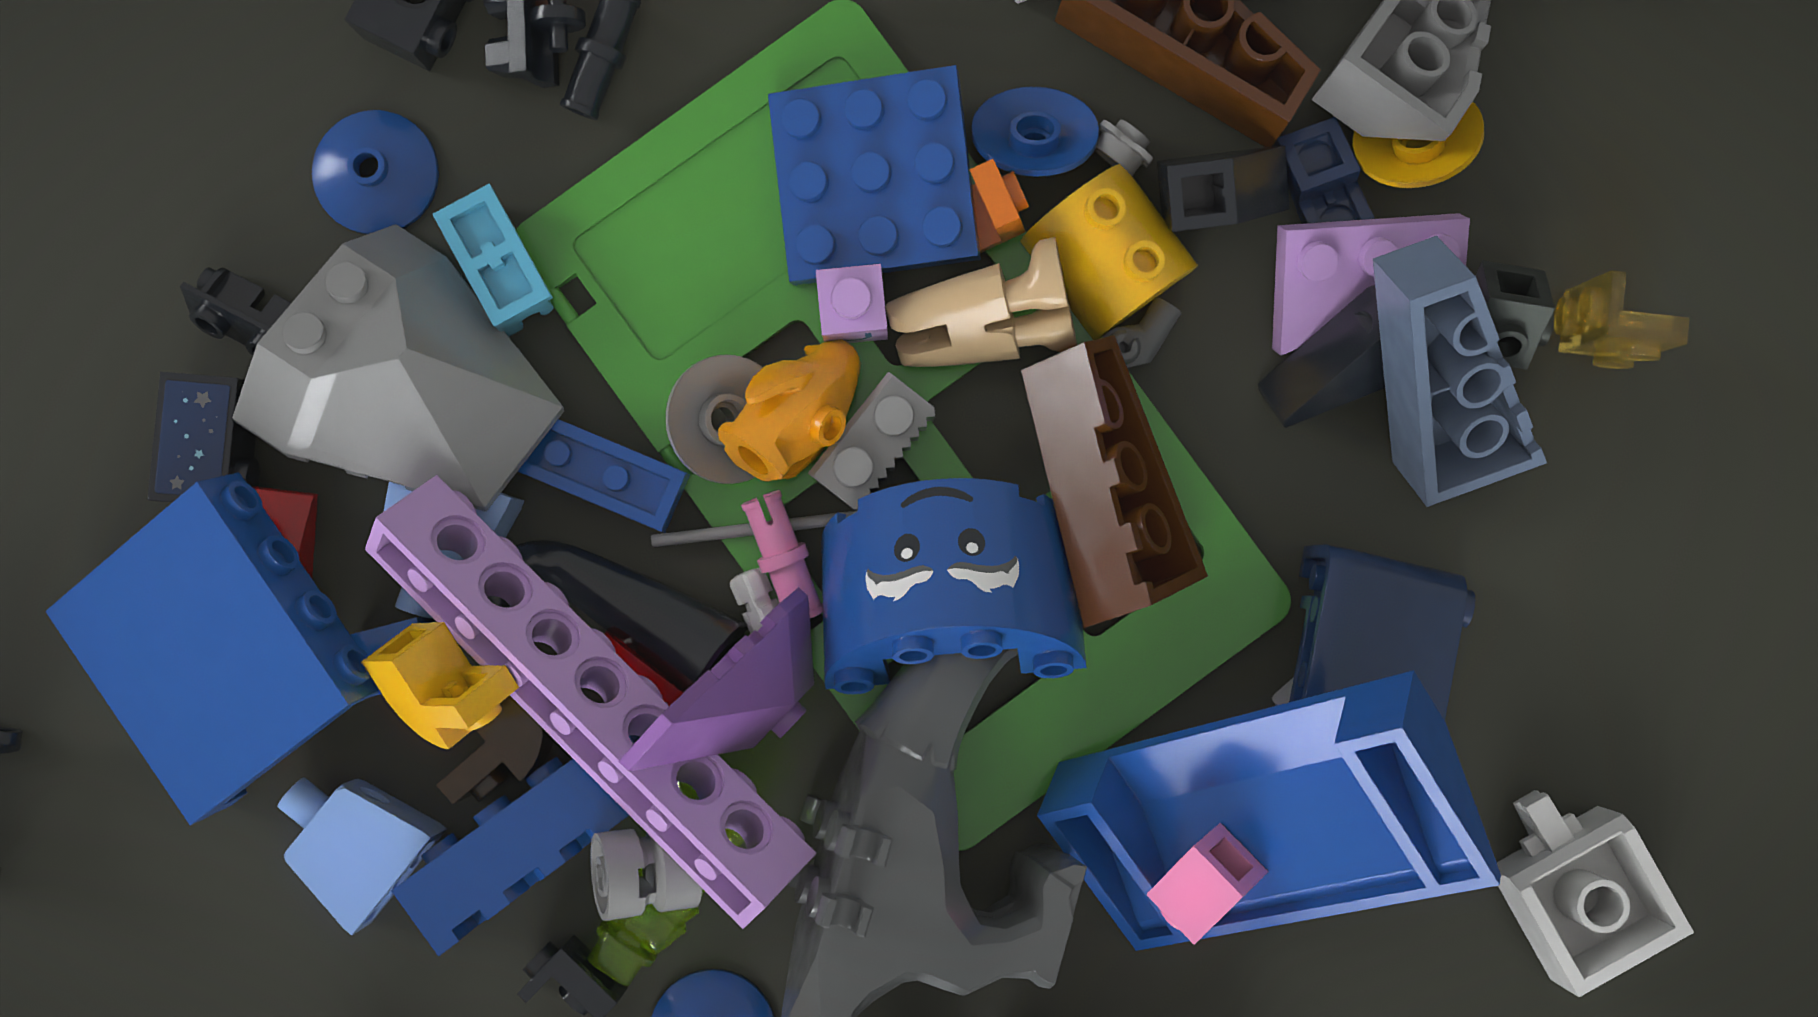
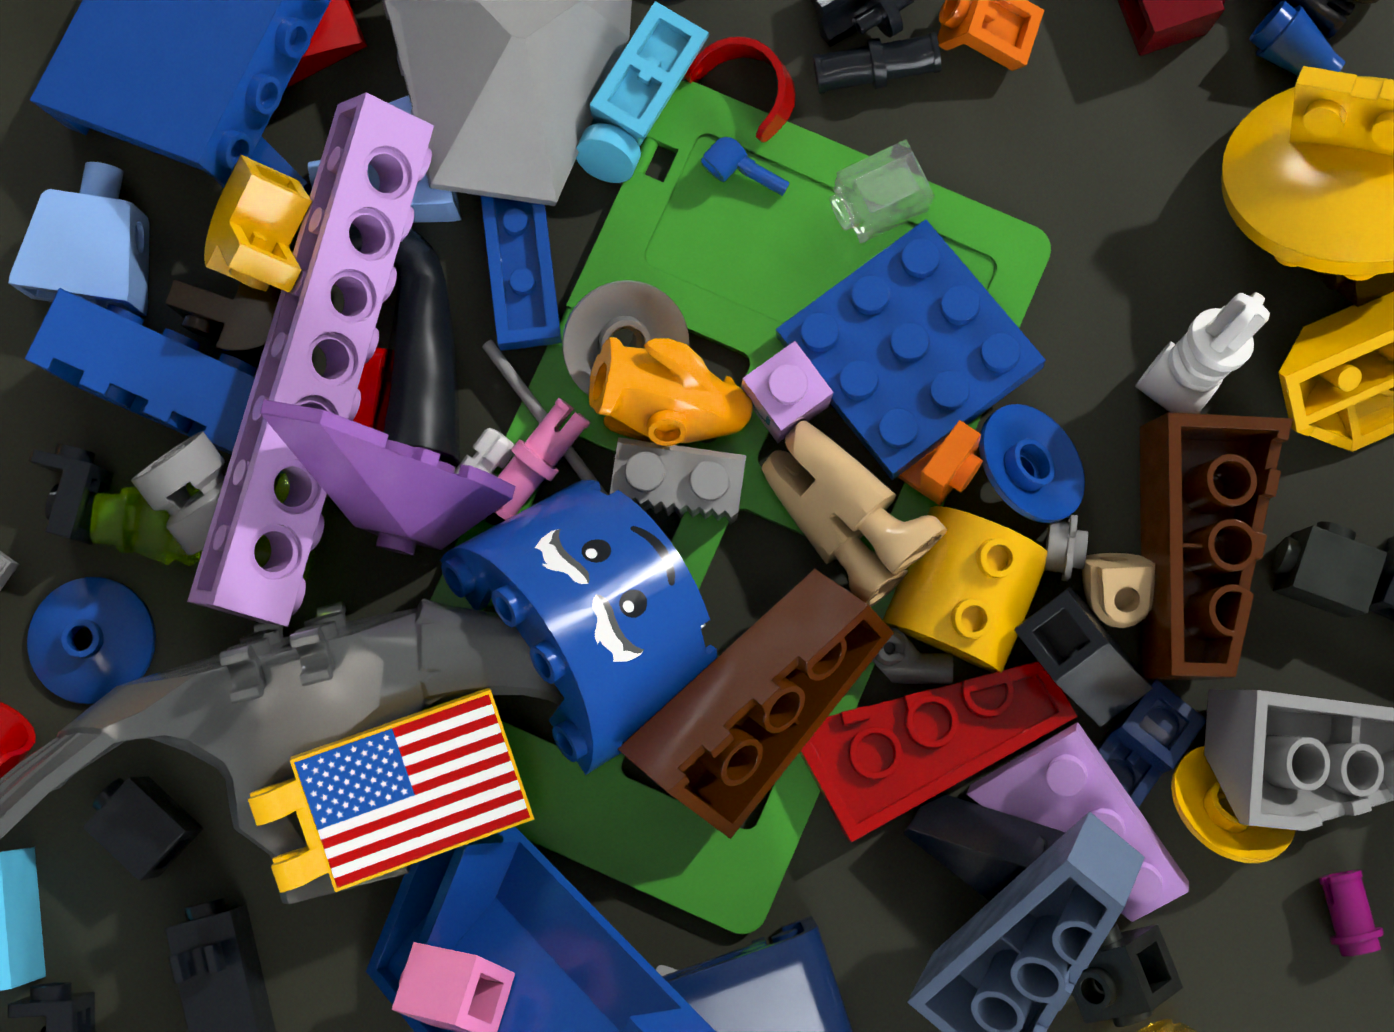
camera: 65 degrees right, 5 degrees down
(519, 157) = (746, 47): none -> red helmet
(543, 336) = (608, 153): none -> medium azure tile
(608, 232) = (728, 155): none -> blue hand
(722, 118) = (881, 192): none -> clear brick
(1017, 838) = (397, 794): none -> tile
(1182, 121) = (1119, 587): none -> tan piece
(1218, 372) = (911, 748): none -> red wing
(1560, 96) = (1350, 913): none -> magenta pin

